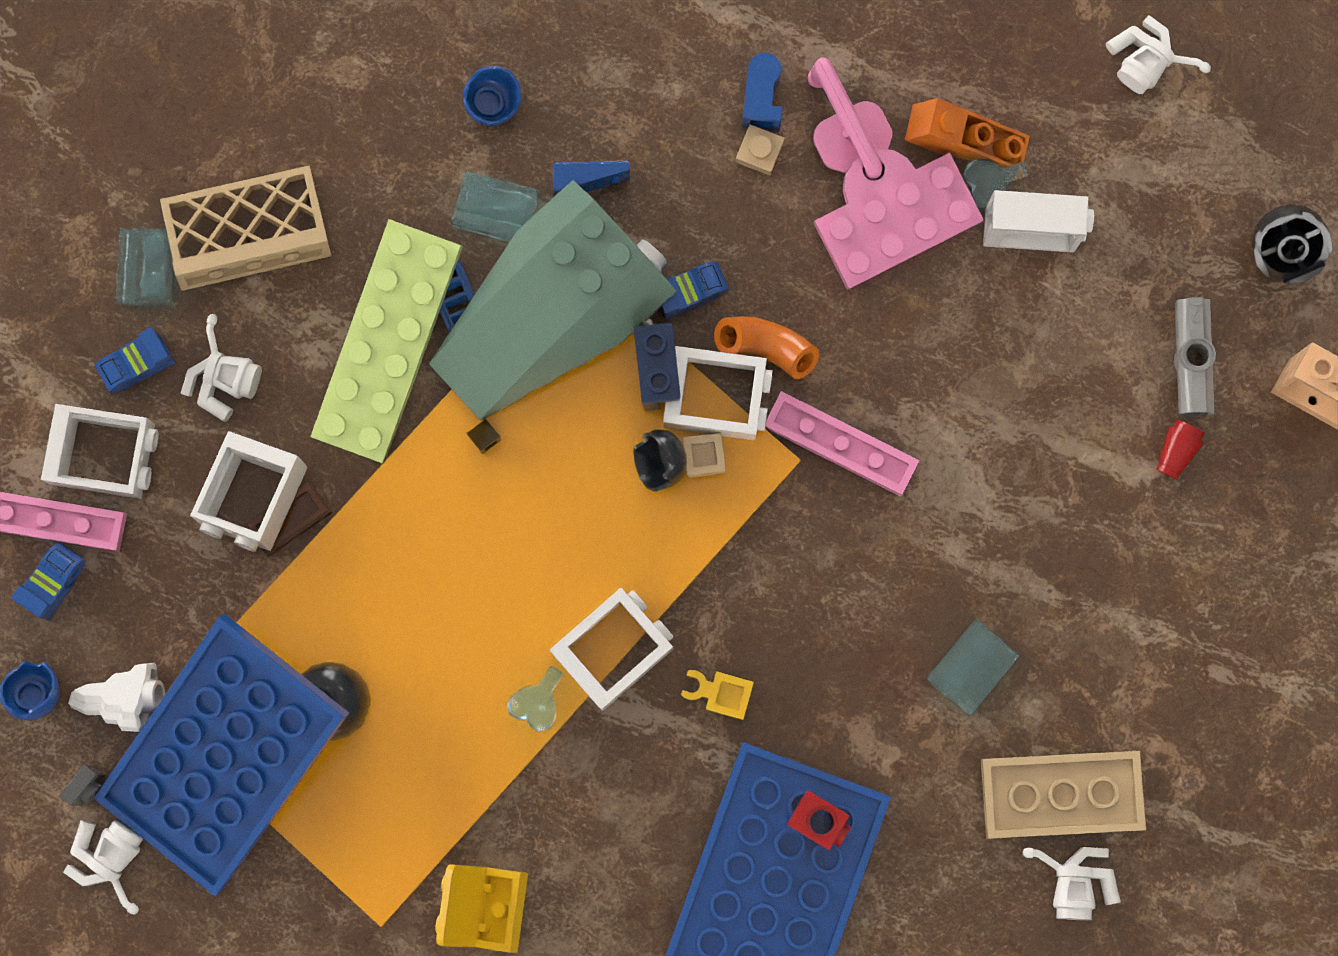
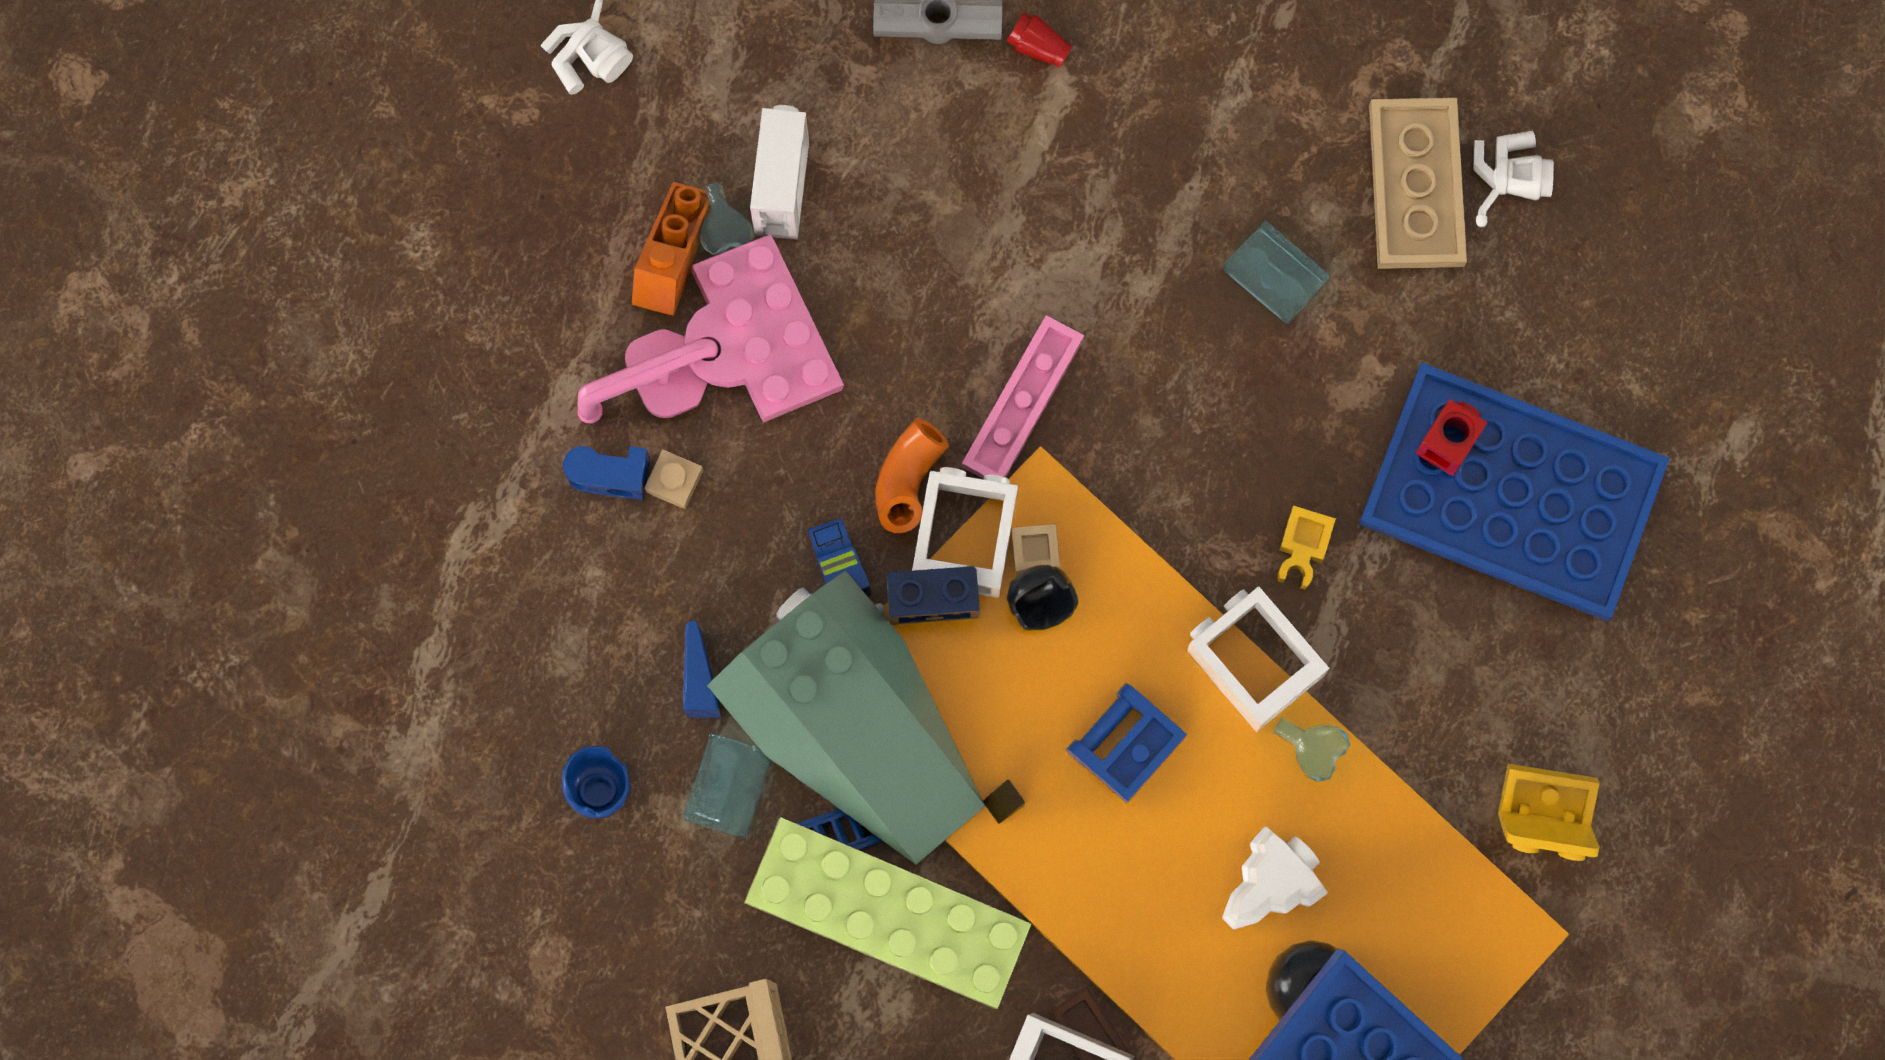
camera: 90 degrees left, 5 degrees down
(418, 666) = (1274, 880): none -> white rock
(529, 549) = (1137, 753): none -> blue plate

